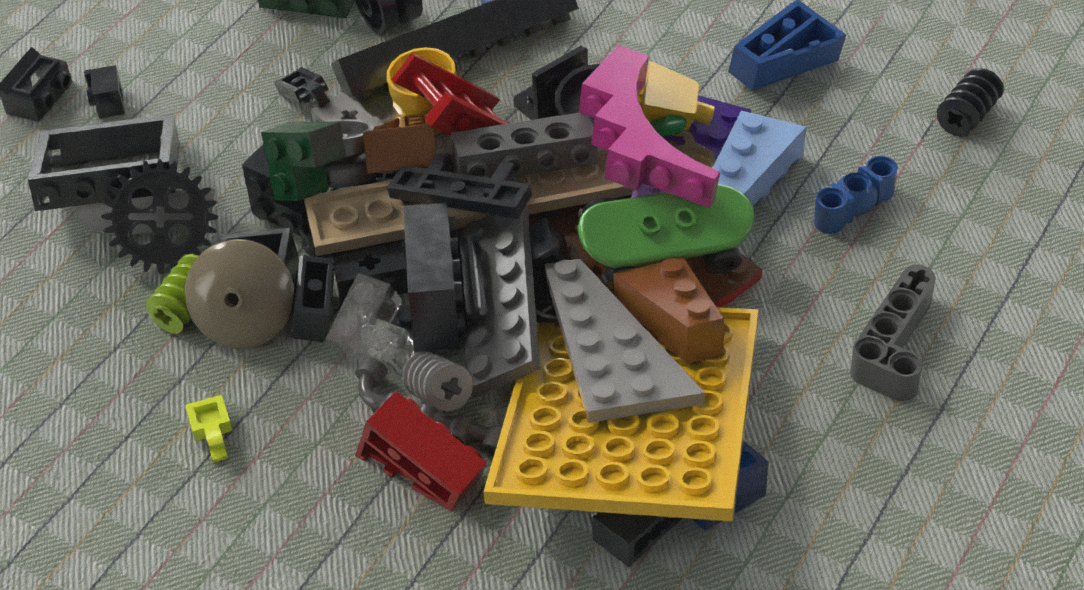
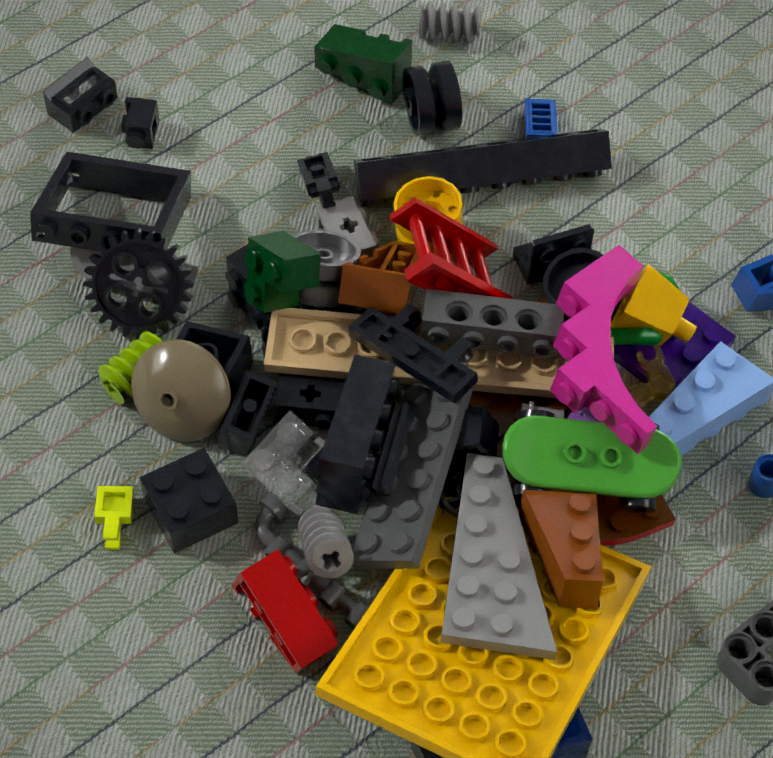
camera: 15 degrees right, 10 degrees up
(284, 389) = (189, 500): none -> black brick

